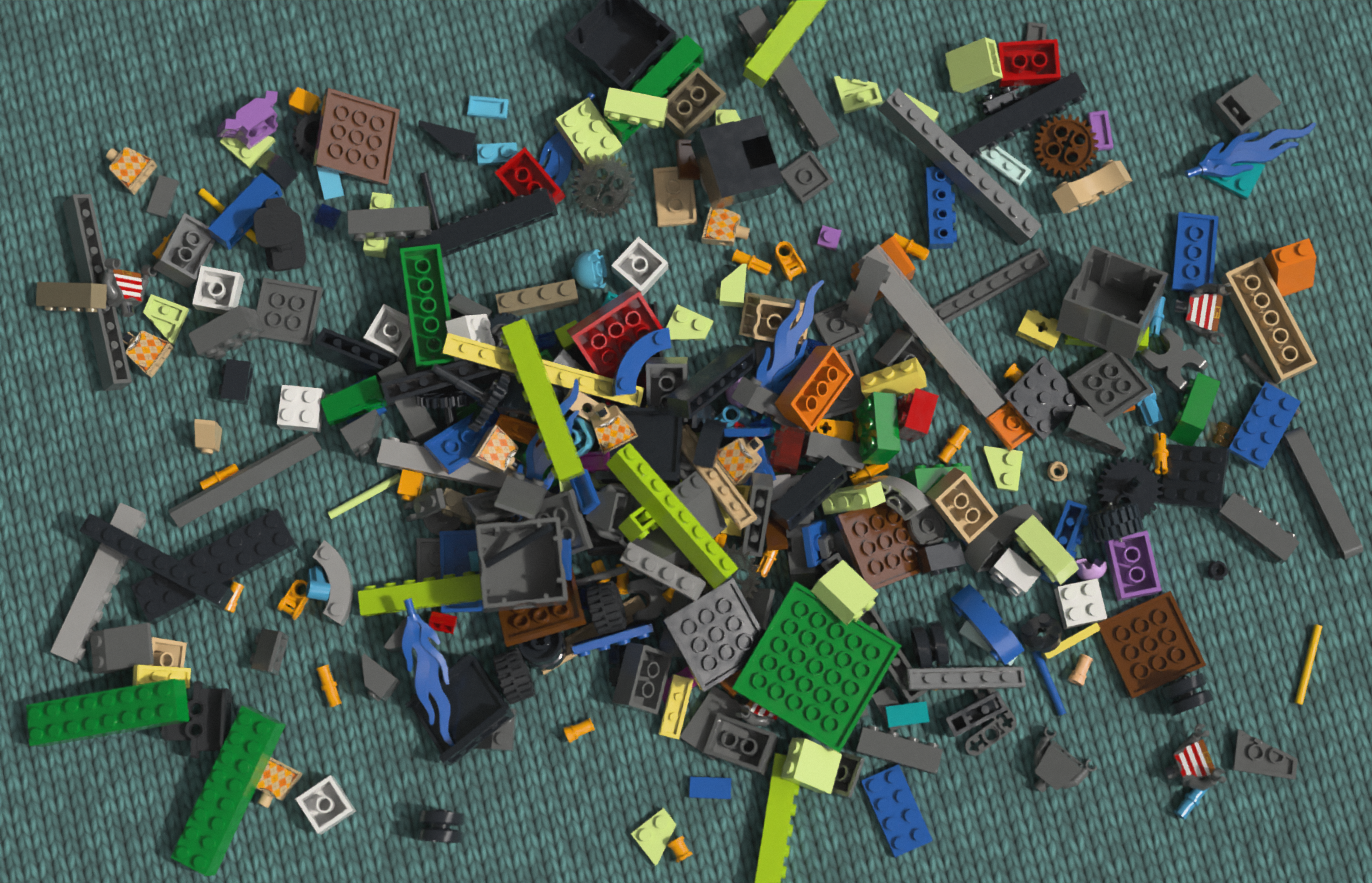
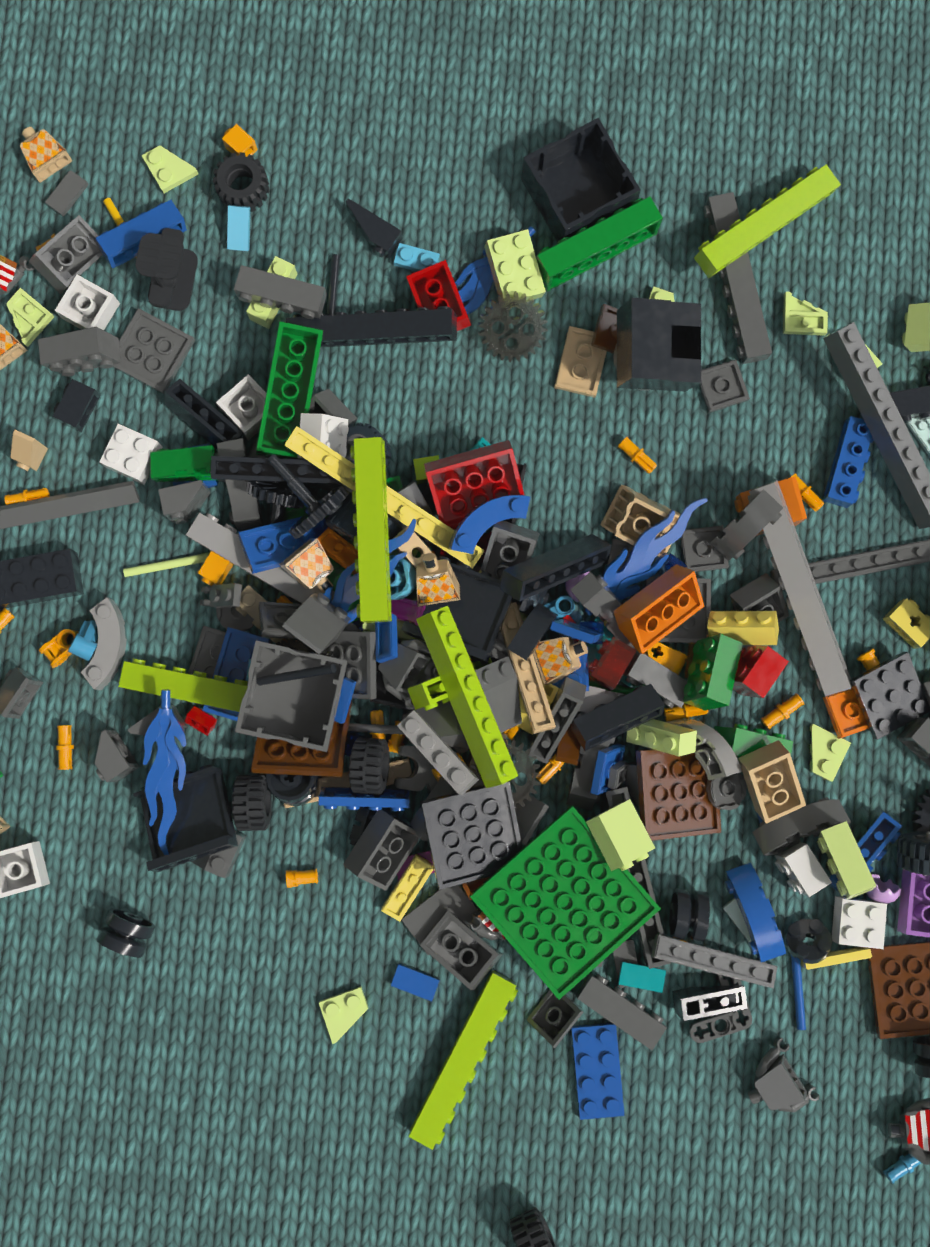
camera: 15 degrees right, 5 degrees up
(252, 121) = (177, 143): medium lavender slope -> none
(277, 169) = (190, 203): black slope -> none
(327, 216) = (225, 267): clear blue plate -> none
(356, 137) = (277, 193): reddish brown plate -> none
(488, 107) = (423, 209): medium azure tile -> none
(538, 298) = (408, 420): dark tan brick -> none
(546, 340) = (401, 466): clear blue plate -> none
(590, 269) = (470, 409): medium azure cylinder -> none
(636, 108) = (572, 255): yellowish green brick -> none
(640, 266) = (522, 422): white brick -> none
(679, 849) = (362, 1036): light orange bush -> none
(688, 325) = (551, 498): yellowish green wing -> none
(693, 103) = (630, 271): dark tan brick -> none
(723, 228) = (620, 410): tan torso -> none
(732, 288) = (610, 475): yellowish green slope -> none
(790, 264) = (677, 467): light orange piece -> none
(811, 765) = (525, 999): yellowish green brick -> none
(829, 238) = (725, 456): medium lavender plate -> none
(940, 558) = (730, 827): black brick -> none
(1057, 465) = (886, 775): tan plate -> none
(1079, 674) = (832, 994): light nougat pin -> none

